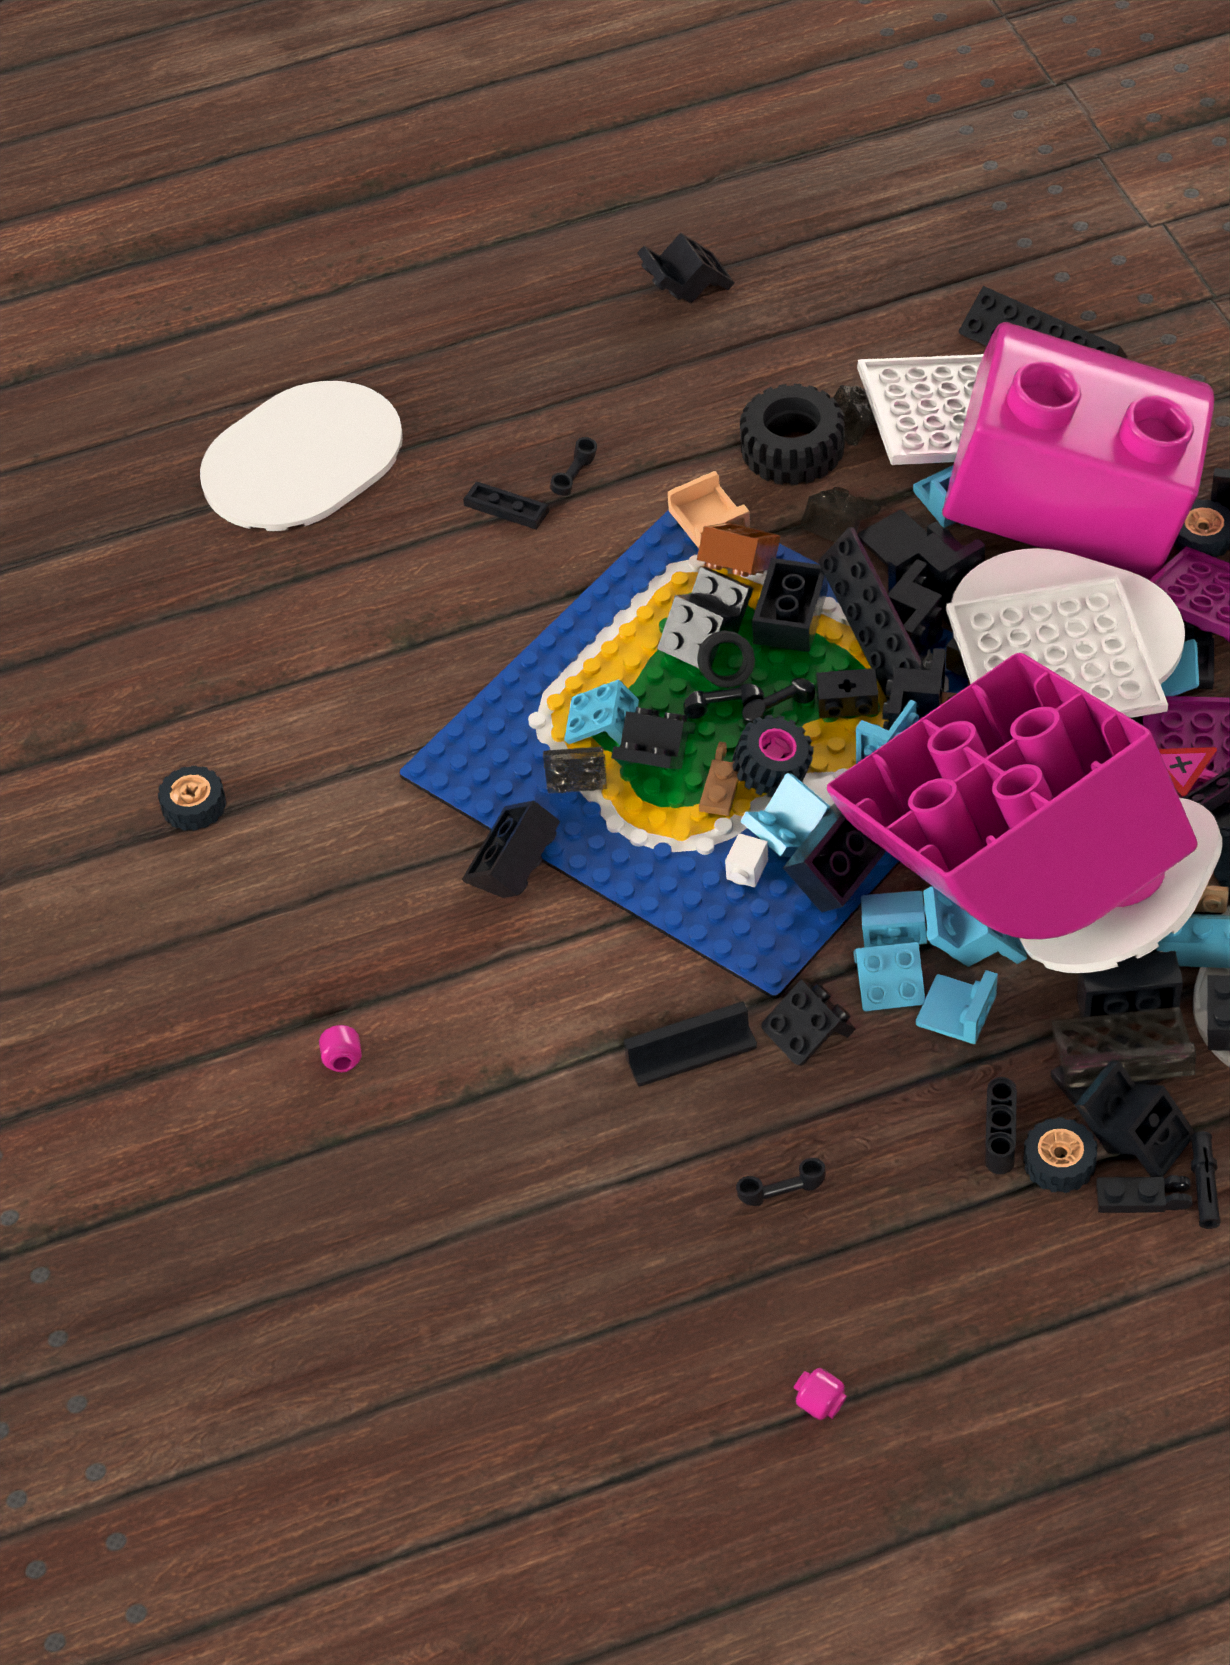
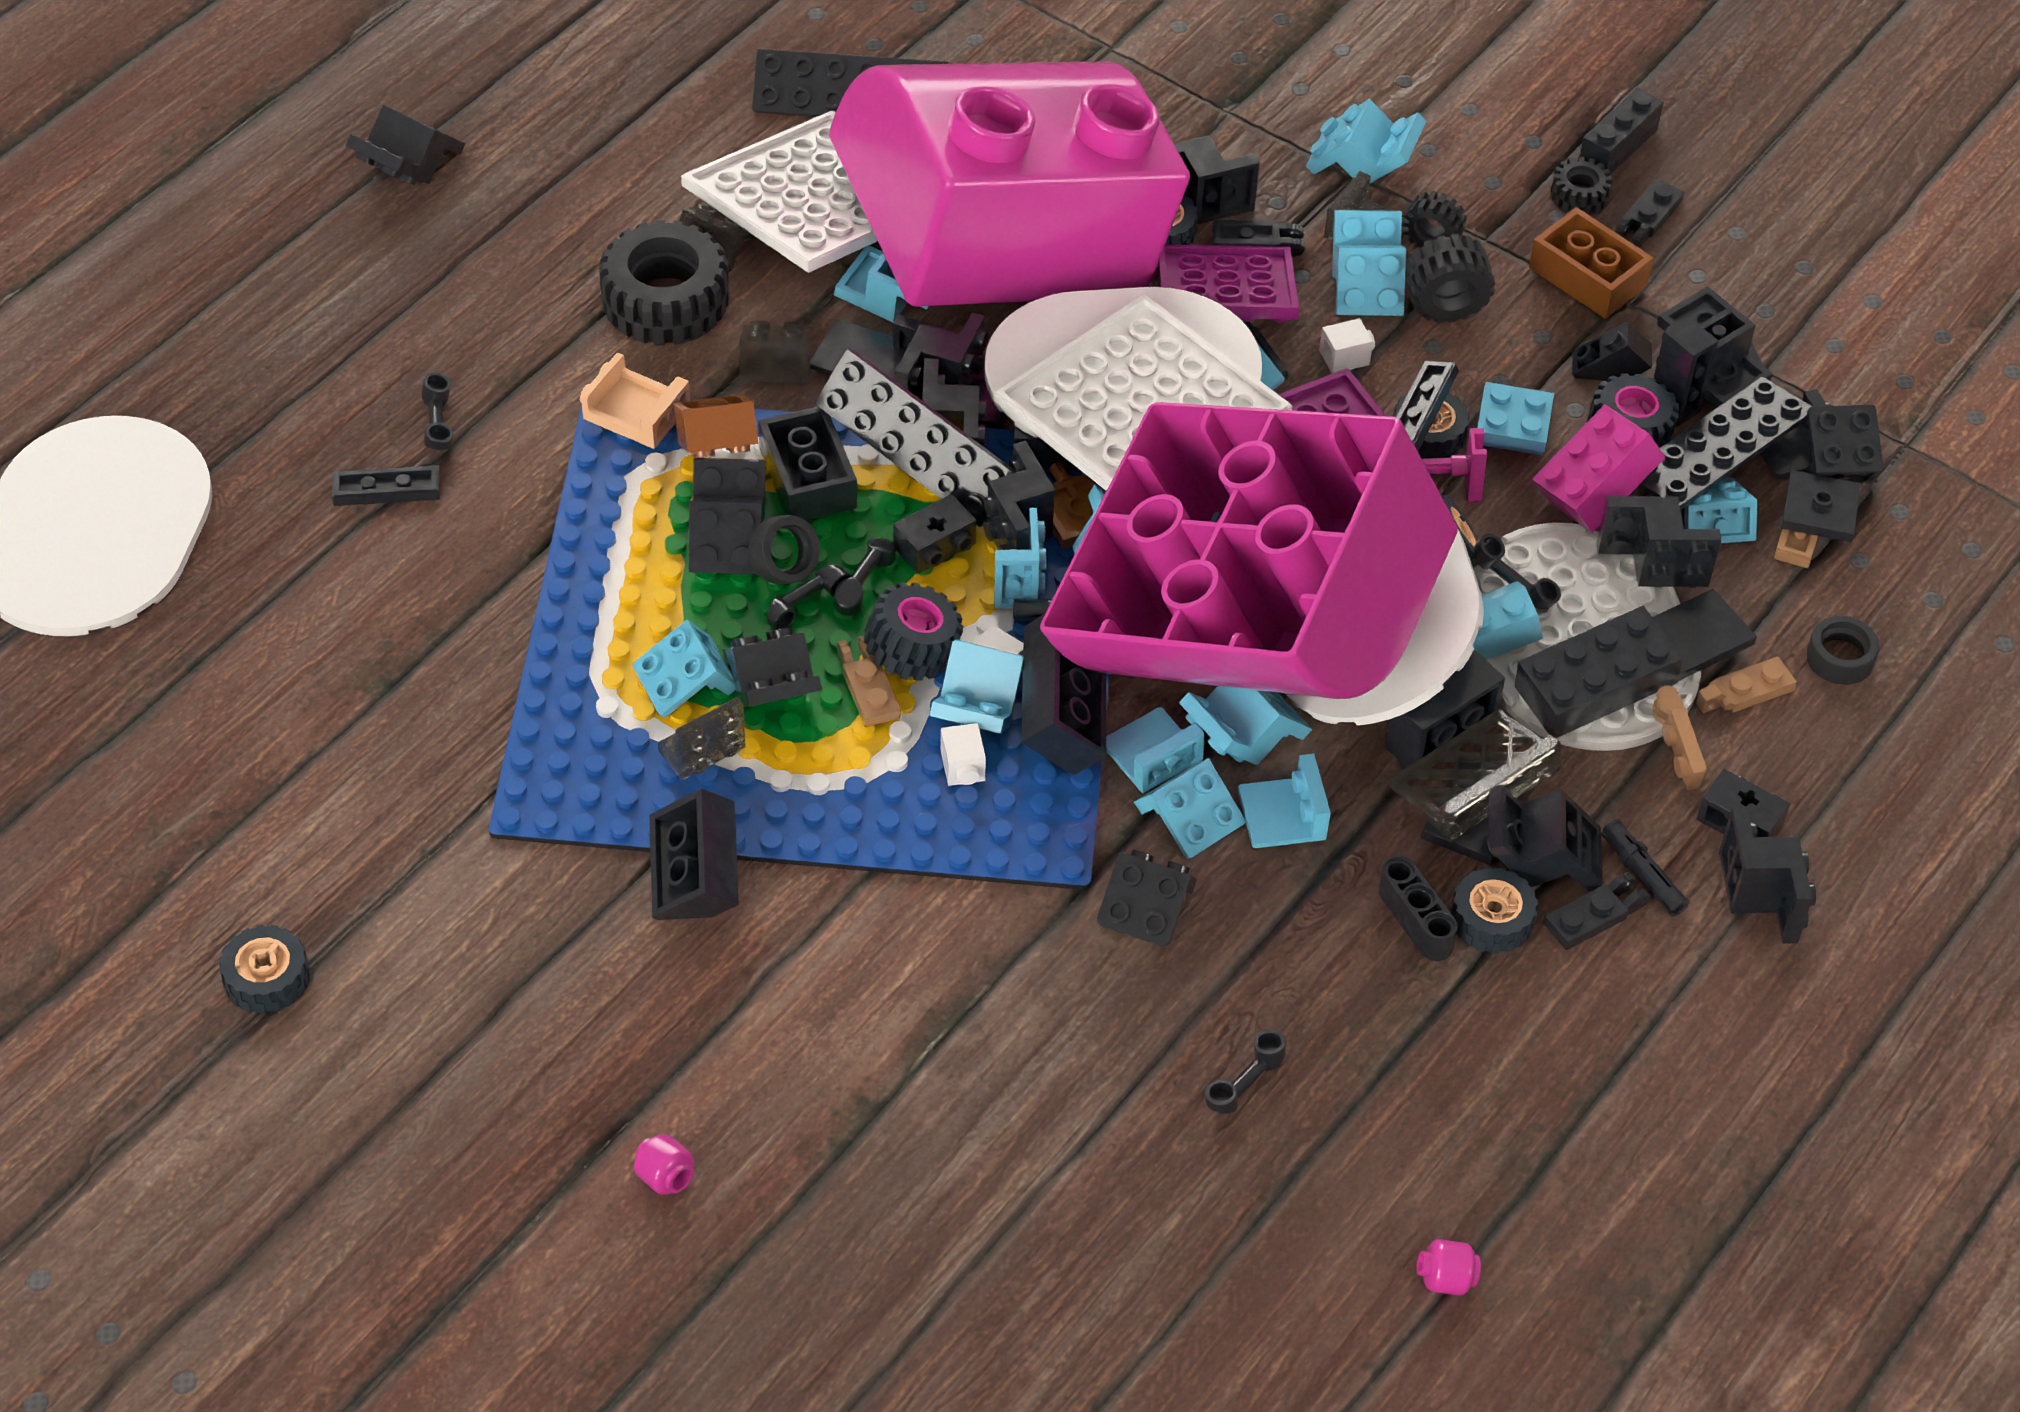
camera: 40 degrees left, 0 degrees up
(689, 1044) = (1041, 978): black panel -> none

